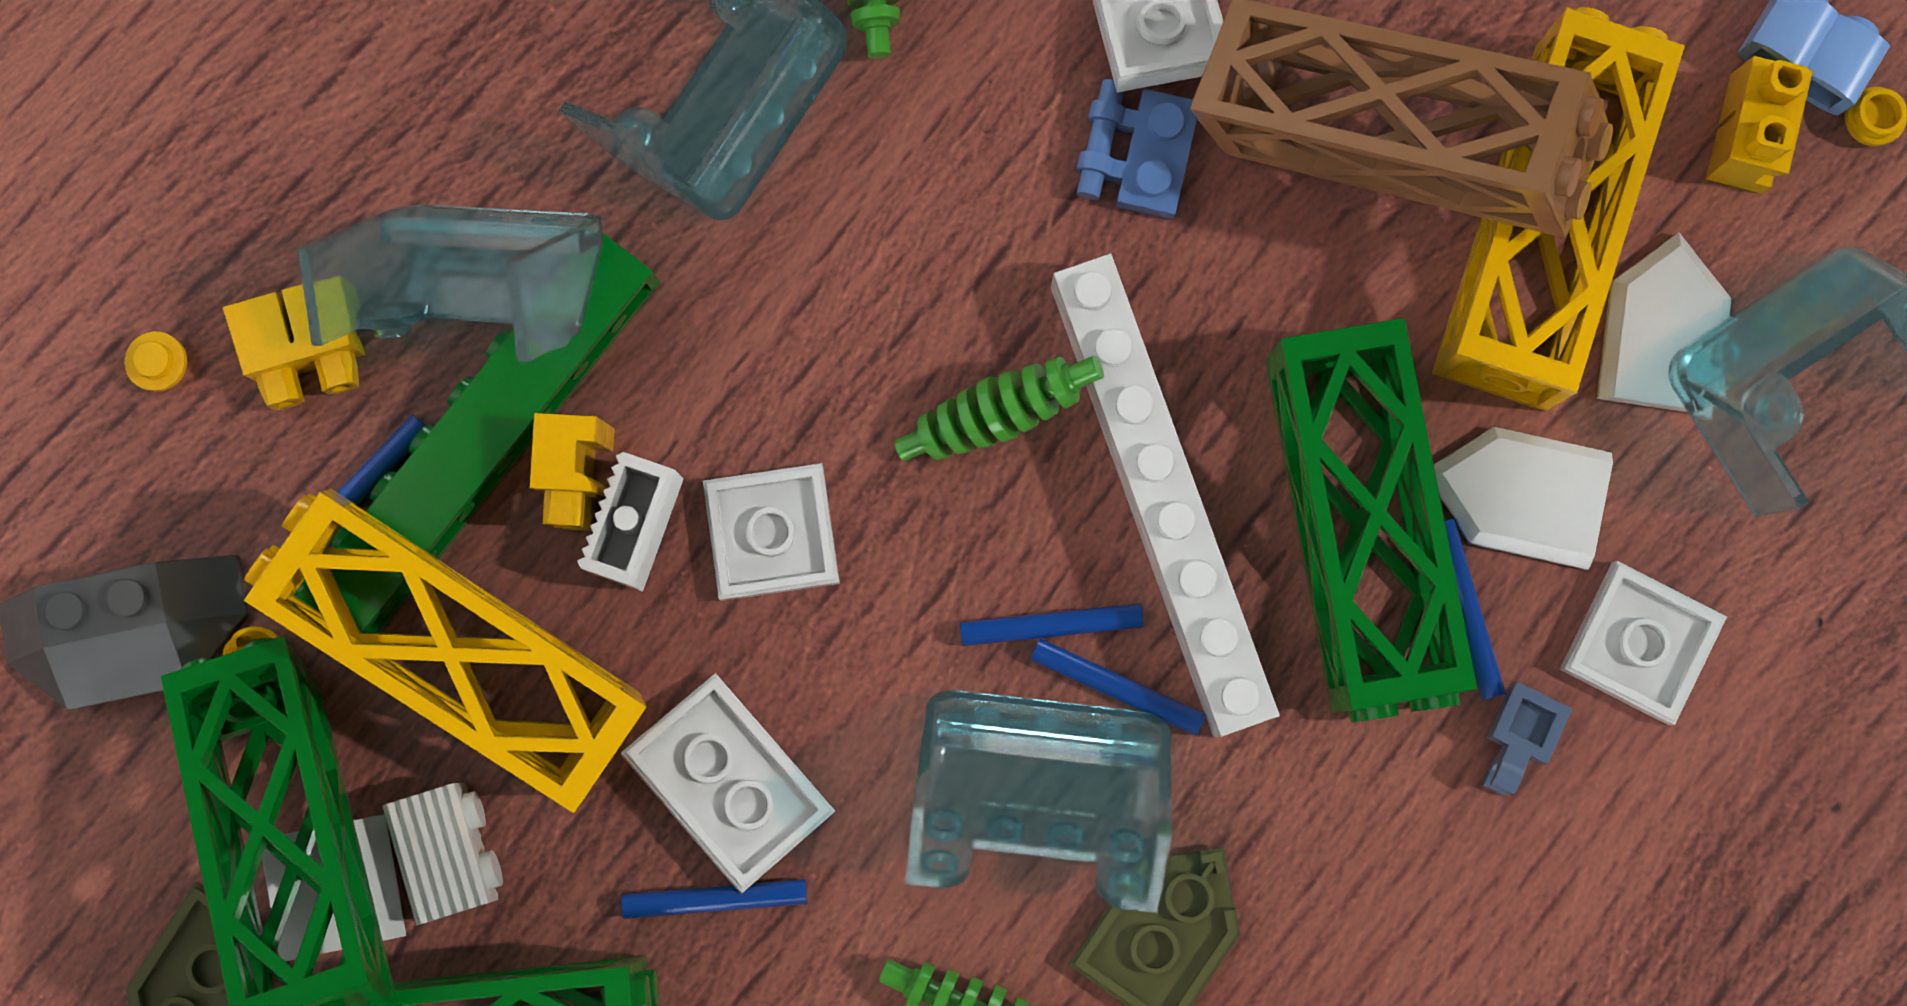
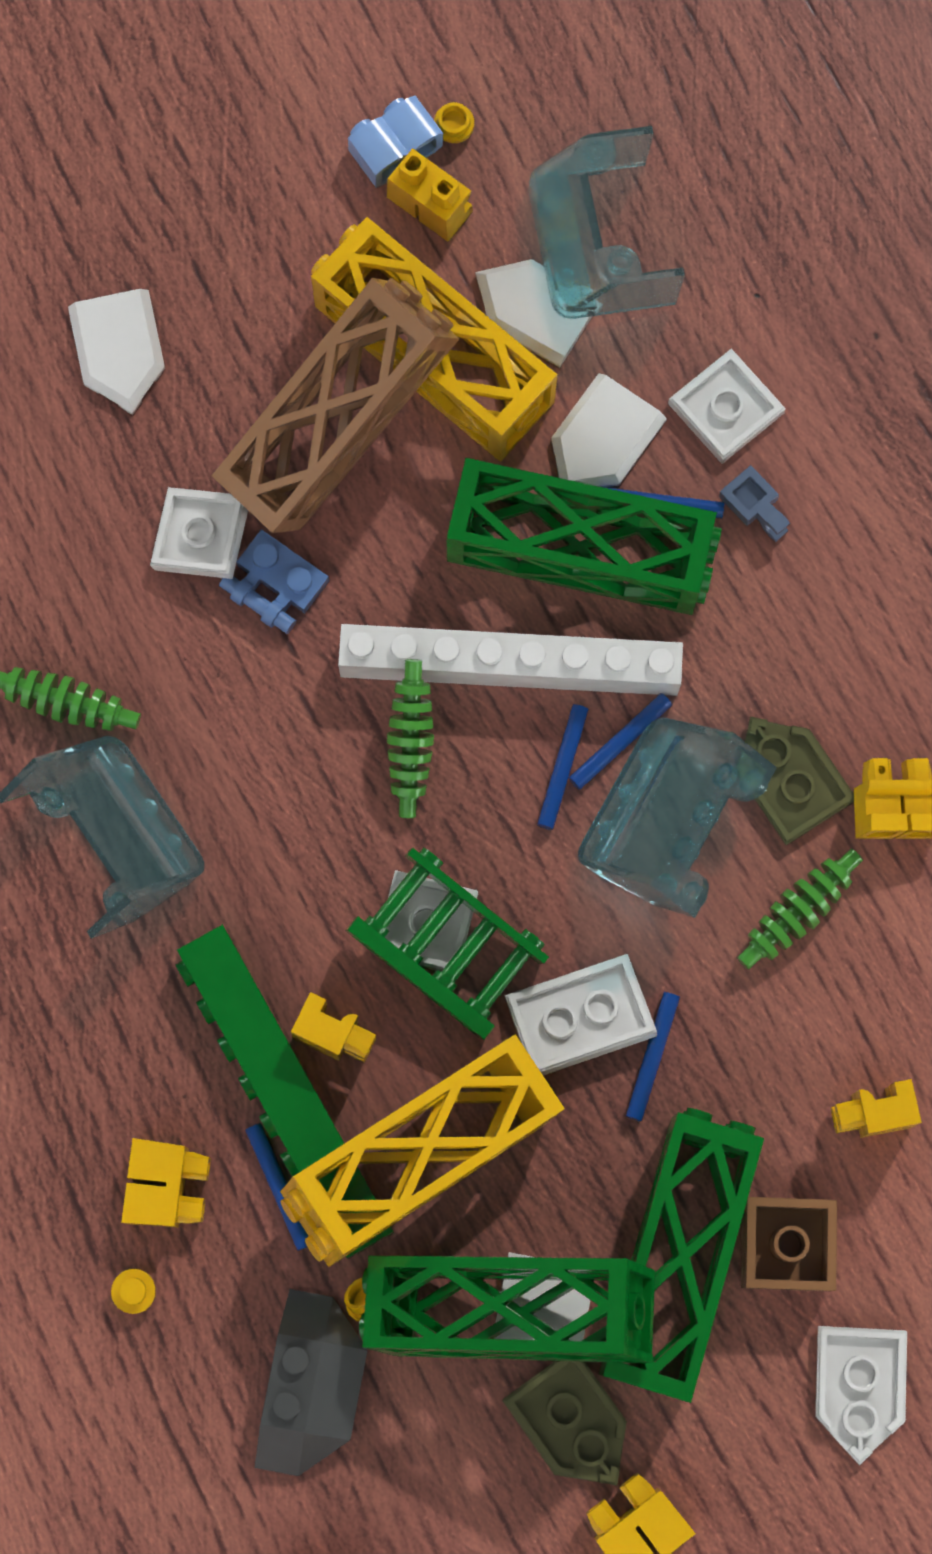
camera: 70 degrees left, 5 degrees down
(443, 851) = (549, 1221): white brick -> none
(455, 266) = (166, 1044): clear light blue windscreen -> none
(631, 521) = (383, 1006): white brick -> none
(688, 584) = (407, 957): none -> green fence

